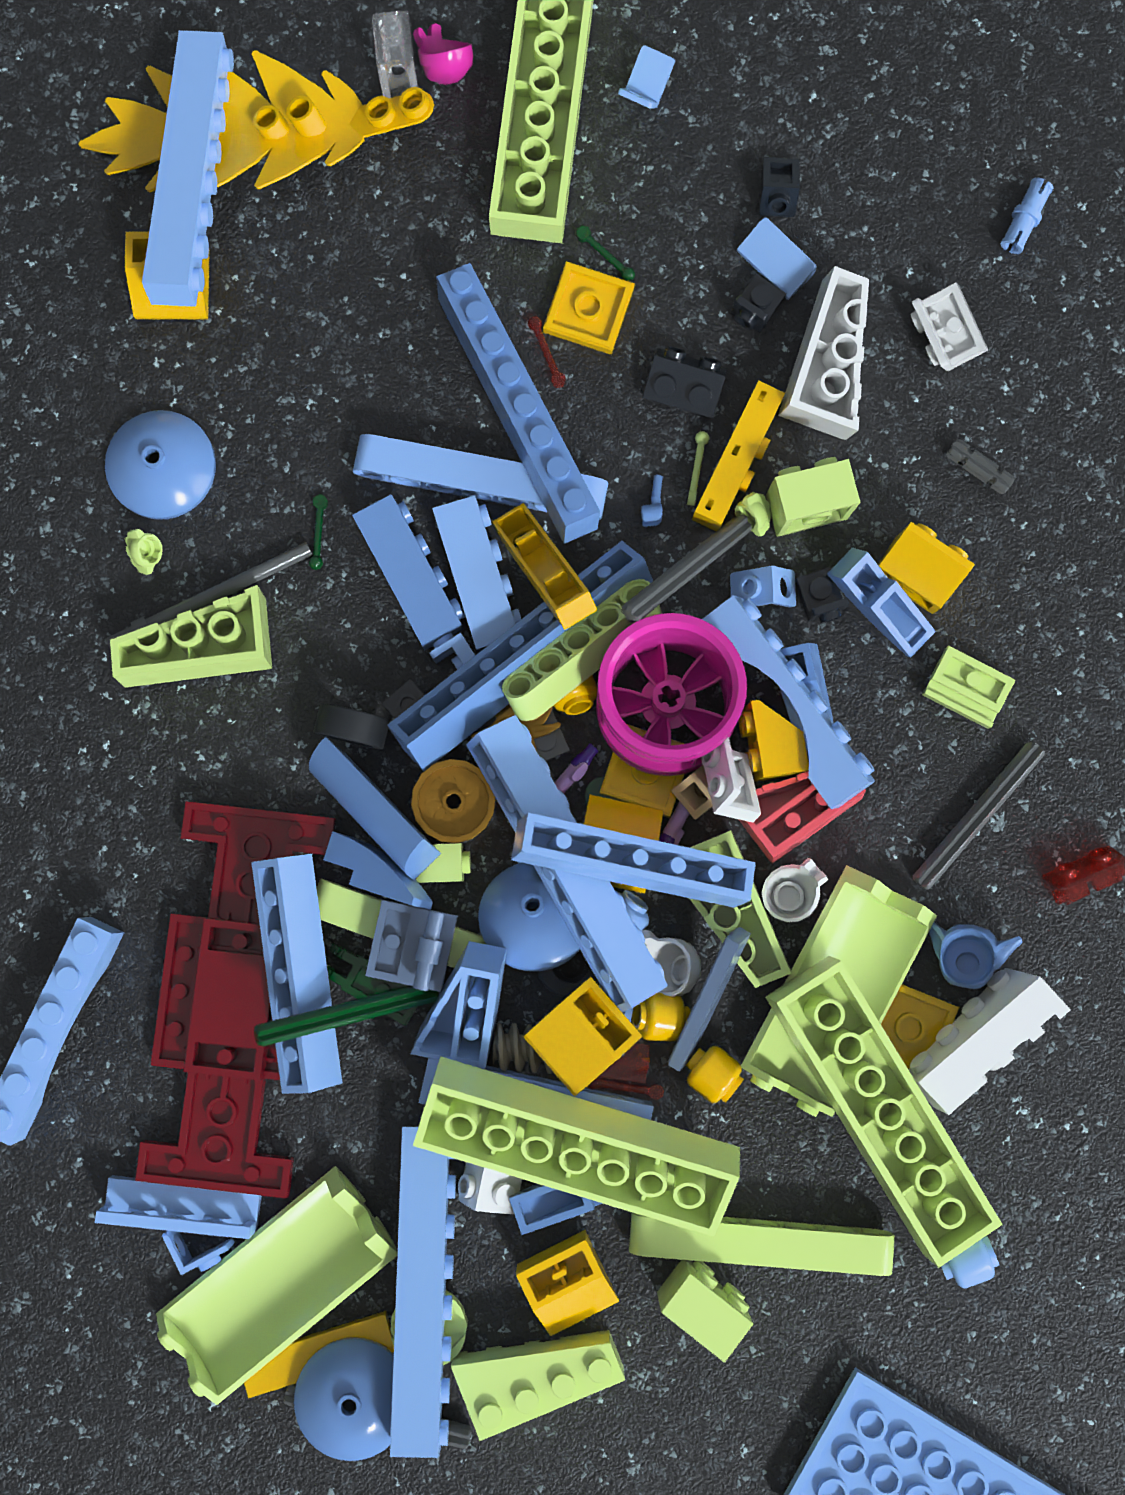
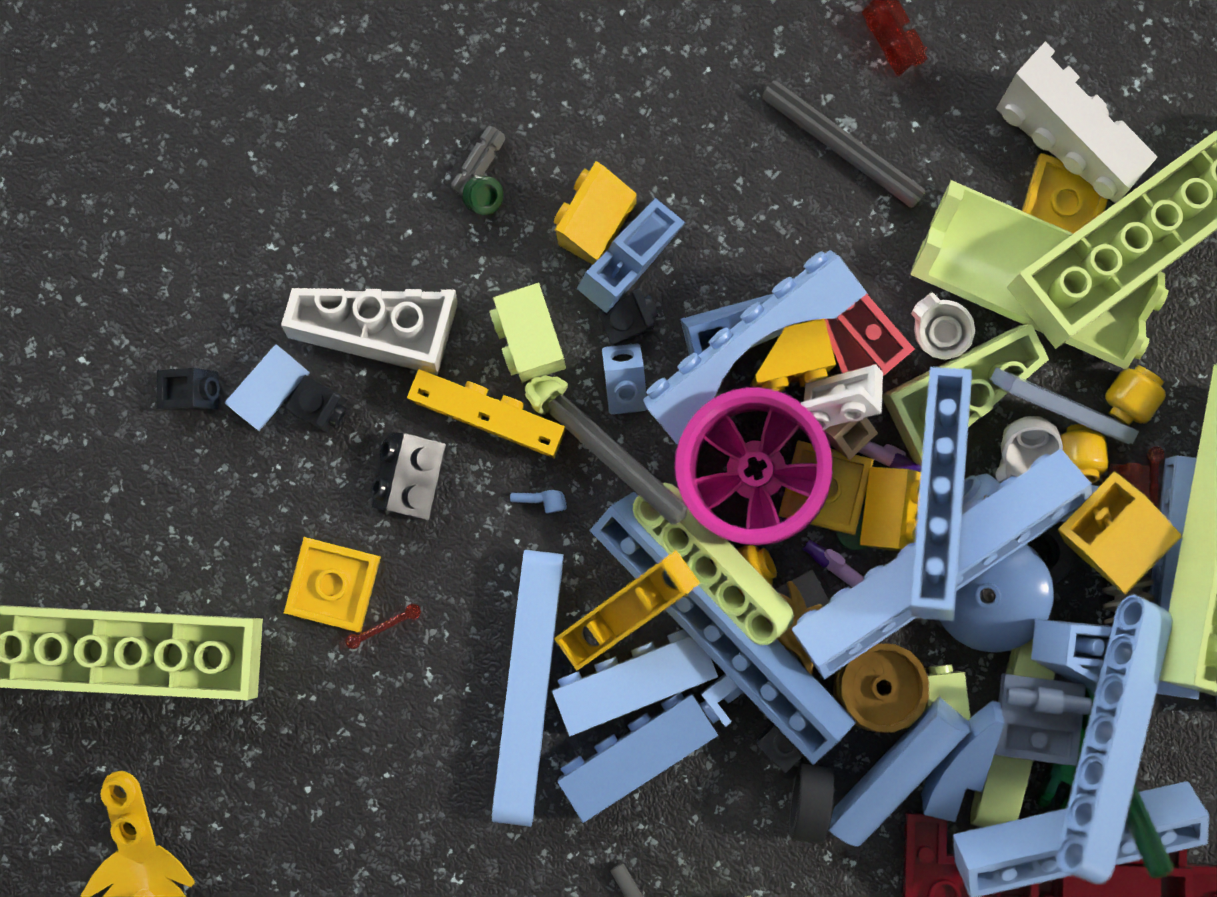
camera: 90 degrees left, 0 degrees up
(320, 503) = (565, 858): dark green hinge -> none
(387, 1006) = (1114, 740): none -> light blue beam
(394, 48) = (62, 819): clear torso -> none
(442, 59) = (63, 766): dark pink piece -> none
(517, 403) = (449, 653): medium blue brick -> none
(584, 235) = (250, 595): dark green hinge -> none
(648, 77) = (76, 539): light blue bracket -> none
(701, 439) = (468, 453): yellowish green hinge -> none
(948, 467) = (483, 194): none -> dark green tile
(949, 328) = (333, 202): white bracket -> none
(968, 687) = (712, 161): yellowish green plate -> none
(970, 953) = (989, 144): medium blue piece -> none
(1026, 215) = (205, 128): light blue pin -> none

